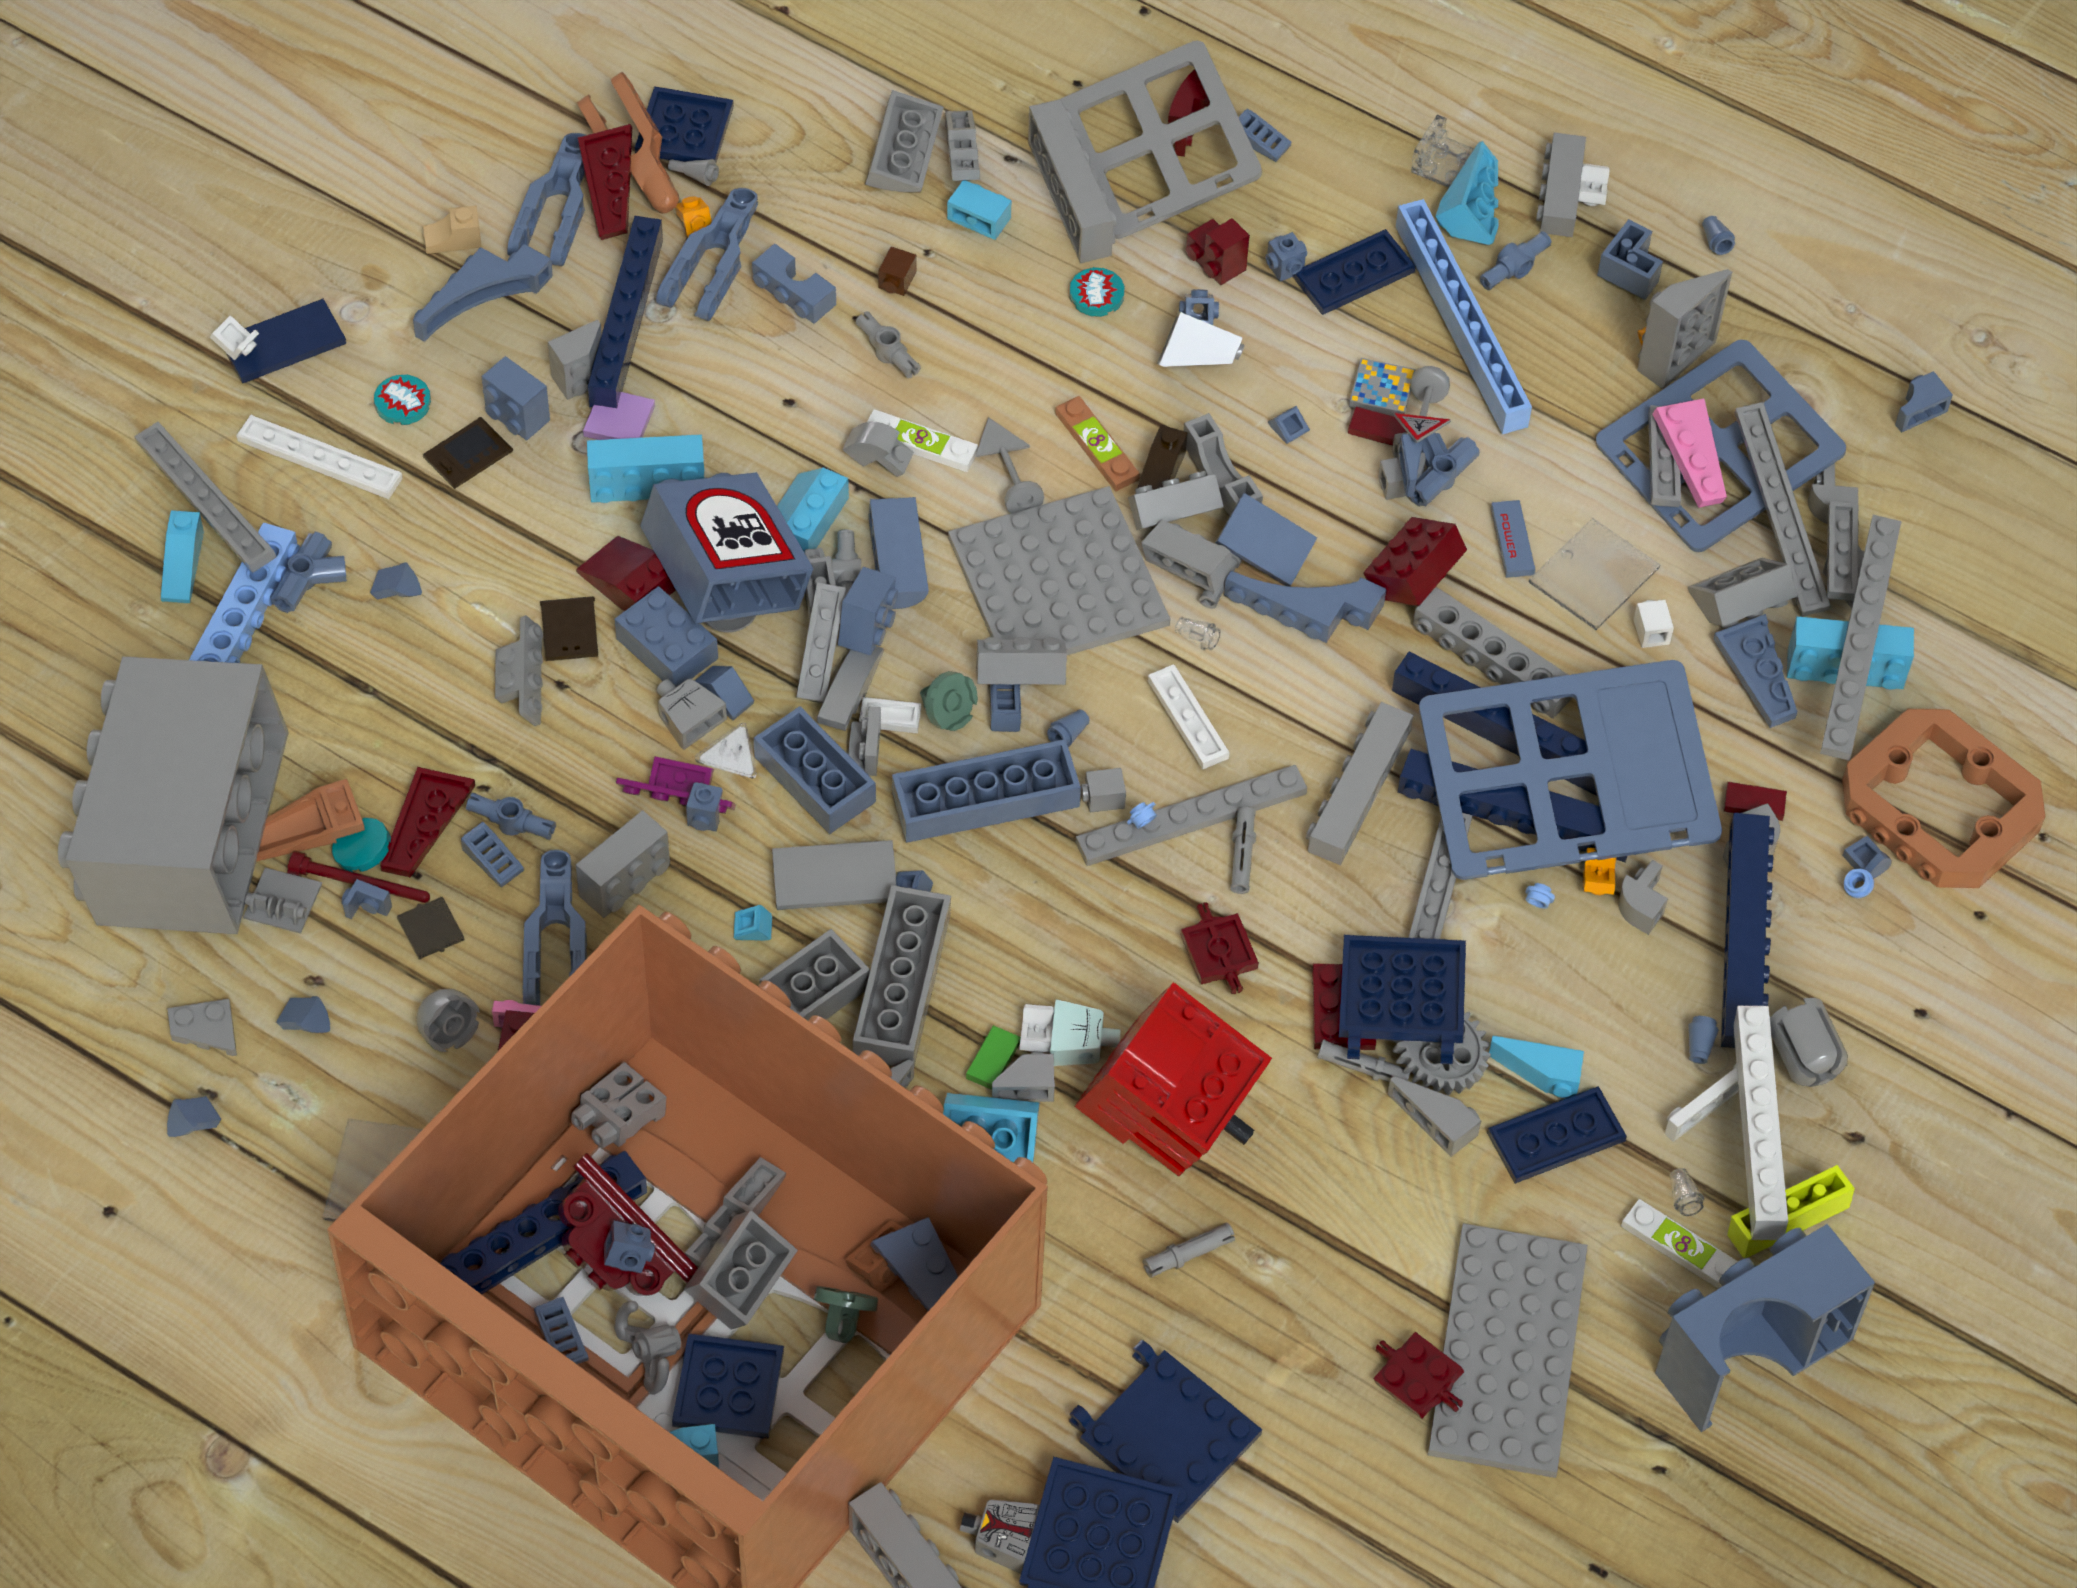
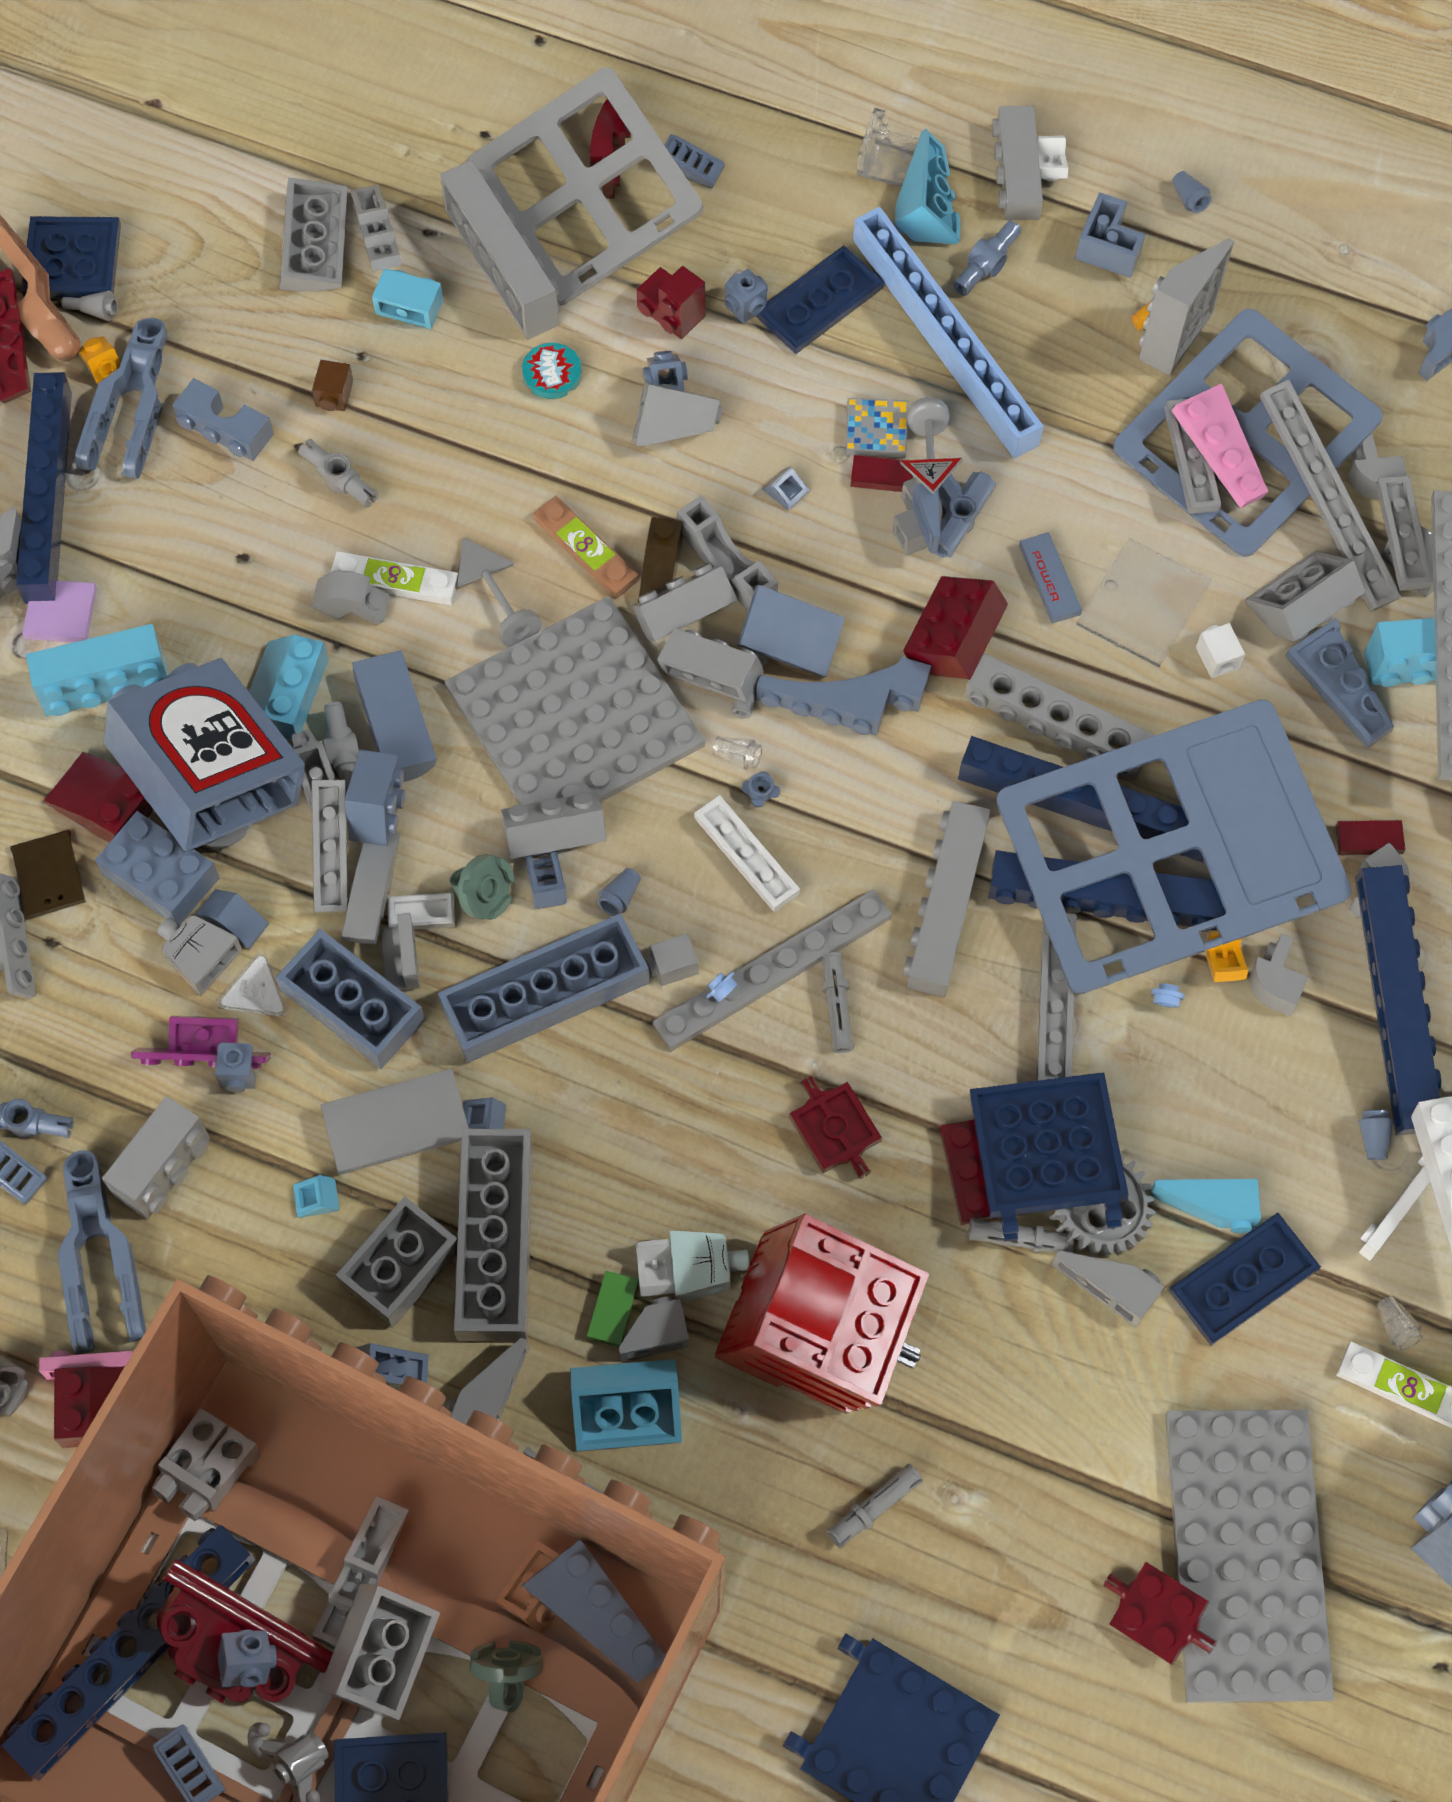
camera: 10 degrees left, 10 degrees up
(1212, 660) = (758, 780): none -> sand blue plate

